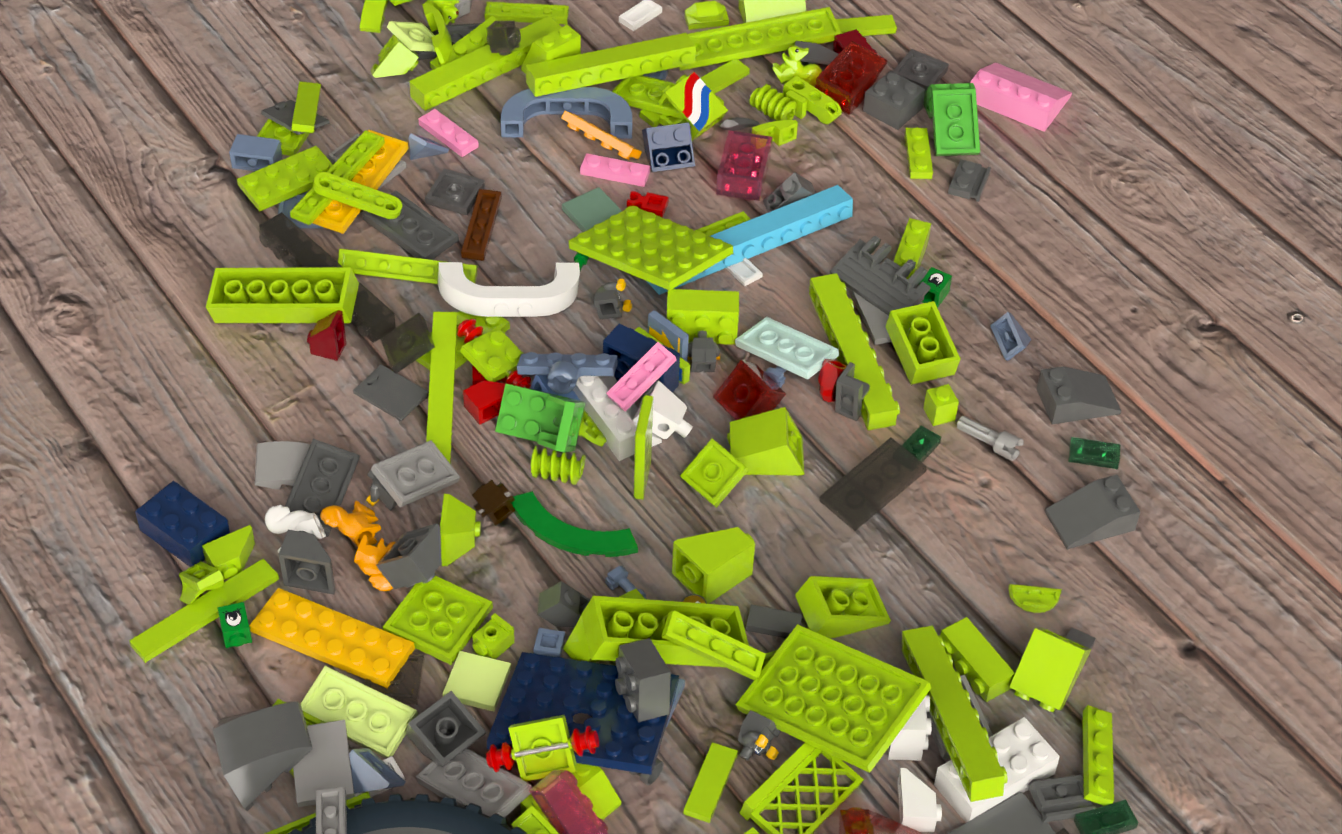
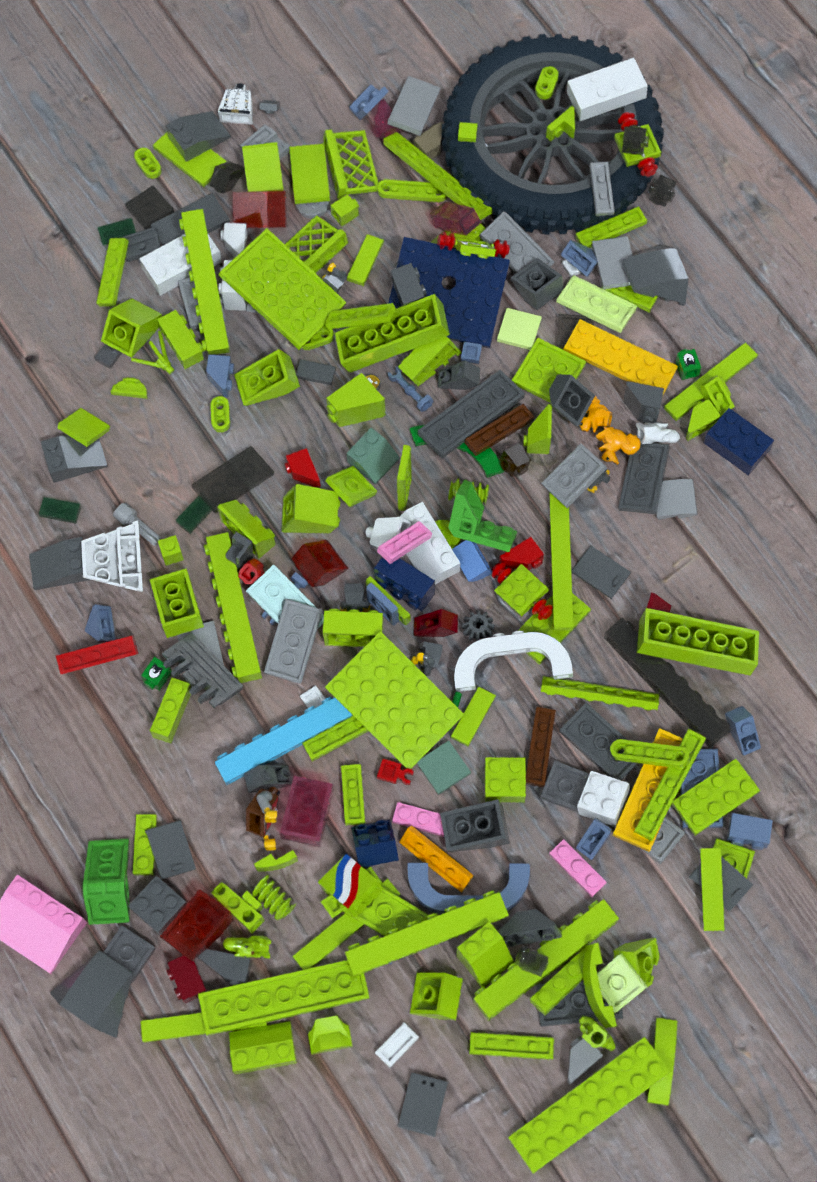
camera: 175 degrees left, 20 degrees up
(244, 234) = (743, 730): none -> sand blue slope
(407, 343) = (591, 607): clear smoke tile -> none
(413, 172) = (603, 798): none -> white brick
(493, 638) = (507, 359): lime brick -> none
(499, 76) = (528, 928): none -> dark grey slope
(512, 538) = (499, 429): none -> reddish brown plate
(523, 193) = (505, 779): none -> lime brick
(549, 330) = (484, 622): none -> dark grey gear
(550, 557) = (471, 413): none -> dark grey plate
(556, 153) = (475, 827): none -> dark grey slope
(556, 252) = (473, 716): none -> lime tile
(565, 369) = (463, 565): sand blue plate -> none
(594, 327) = (436, 624): none -> dark red slope
(600, 33) = (436, 995): none -> lime slope
(690, 511) = (372, 456): none -> sand green slope
(694, 186) = (353, 794): none -> lime plate
(737, 123) = (309, 882): dark grey bar -> none
(774, 314) = (293, 641): none -> light grey tile
(780, 496) = (302, 468): none -> red slope
(793, 153) = (262, 813): none -> torso
(847, 421) = (239, 520): none -> lime slope
(889, 144) = (170, 849): none -> dark grey container
(903, 566) = (220, 415): none -> lime plate
(911, 609) = (219, 372): none -> sand blue slope
(949, 39) = (96, 993): none -> dark grey wedge
(969, 180) = (104, 809): dark grey plate -> none
(996, 632) = (163, 361): none -> lime plant
(1008, 384) = (114, 558): none -> white wedge
(1013, 296) = (97, 654): none -> red brick
(1087, 542) = (83, 427): none -> lime tile

